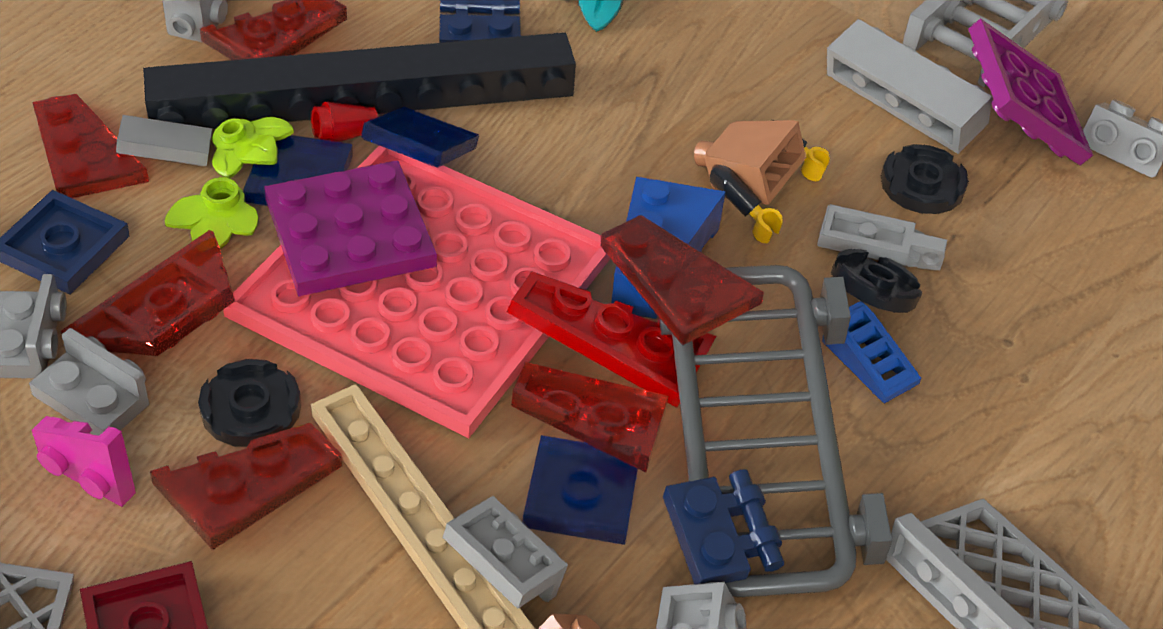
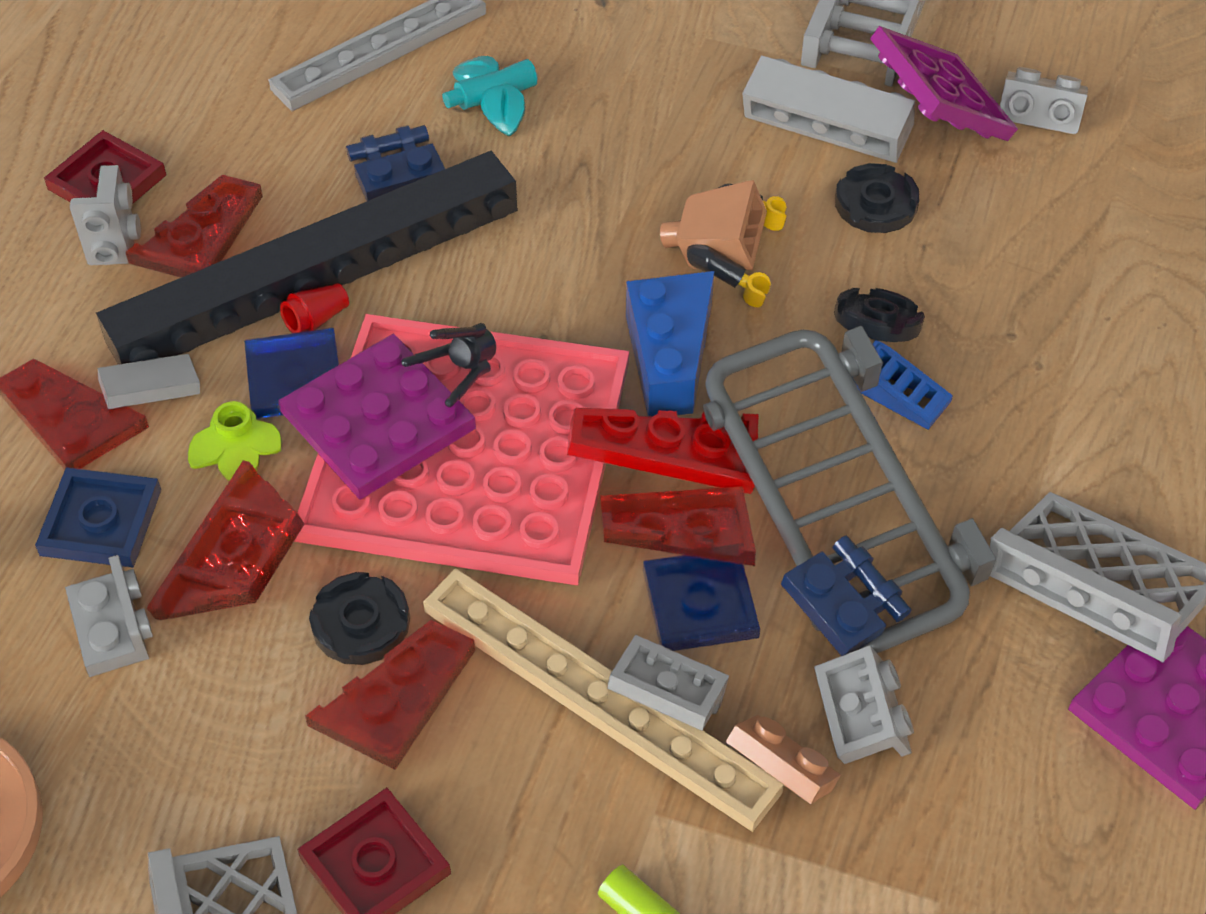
camera: 15 degrees left, 5 degrees up
(91, 460) = (225, 721): dark pink wing -> none
(92, 385) = (204, 652): light grey bracket -> none
(247, 143) = (232, 359): lime plate -> none
(419, 136) = (397, 300): clear blue tile -> none
(461, 192) = (469, 349): none -> black plant
(677, 280) = (712, 374): clear red wing -> none
(881, 237) = (864, 268): light grey hinge -> none

